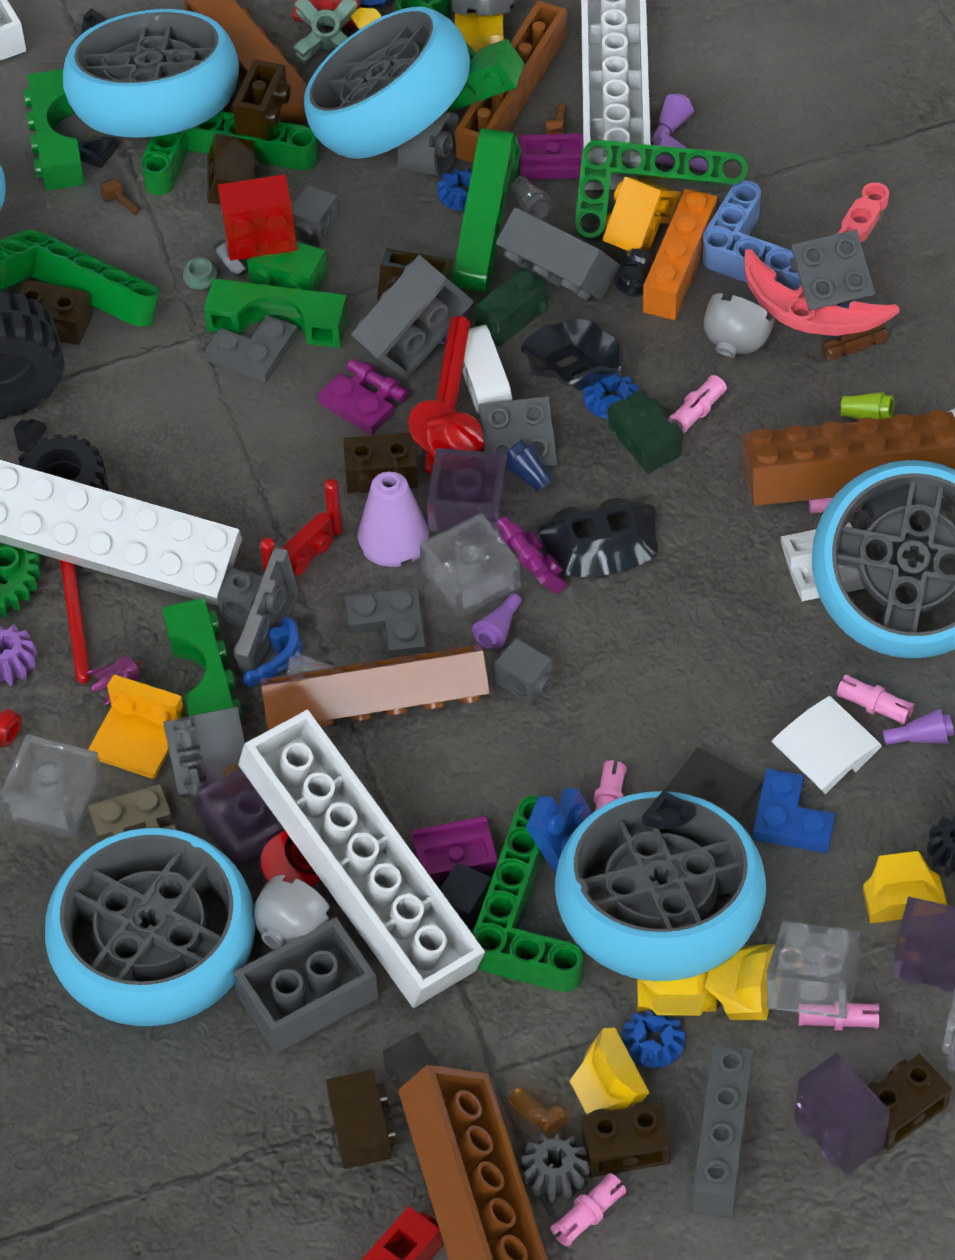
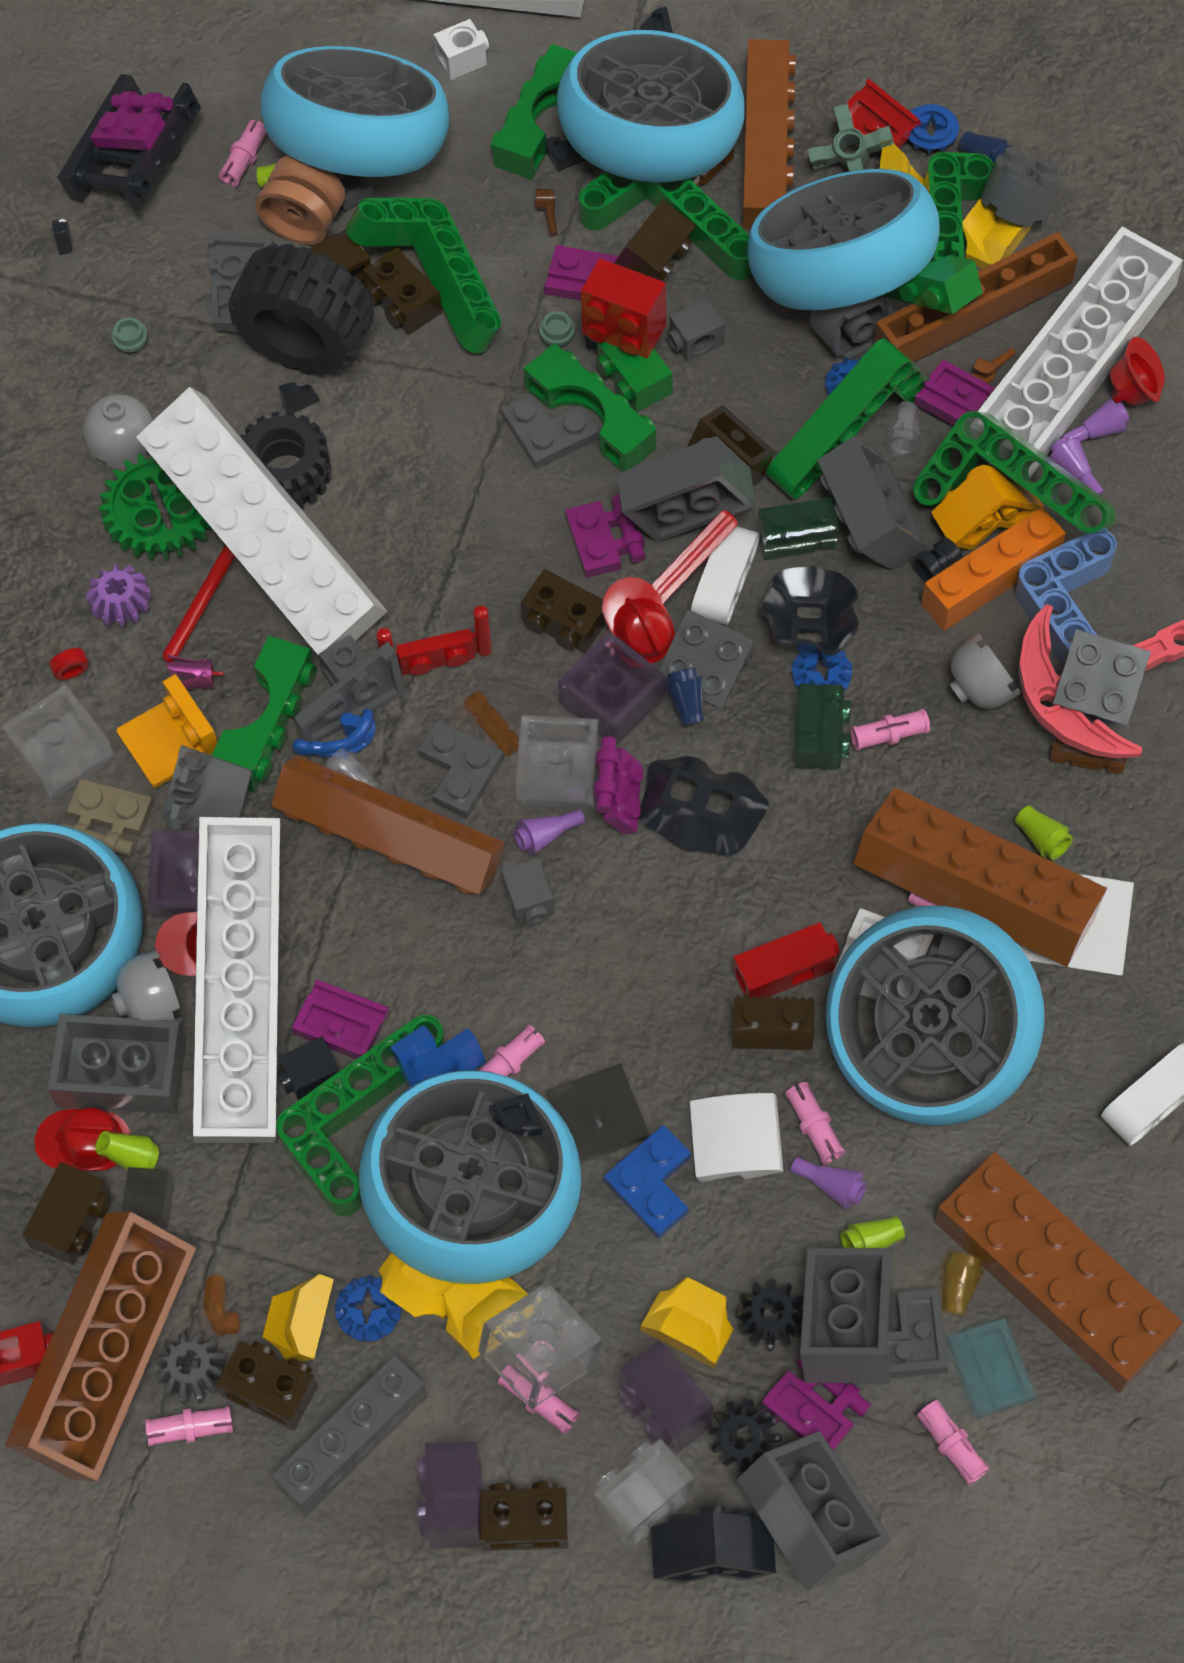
camera: 35 degrees right, 10 degrees up
(187, 227) = (570, 271): none -> magenta plate
(261, 99) = (721, 189): dark brown brick -> none
(321, 1055) = (72, 1136): none -> red piece
(369, 1042) = (128, 1150): none -> lime cone
(389, 573) = (492, 722): none -> clear orange axle
(391, 522) = (524, 677): lavender cone -> none
(671, 73) = (1137, 374): none -> red piece
(759, 604) = (786, 962): none -> red brick
(788, 648) = (773, 1023): none -> dark brown brick

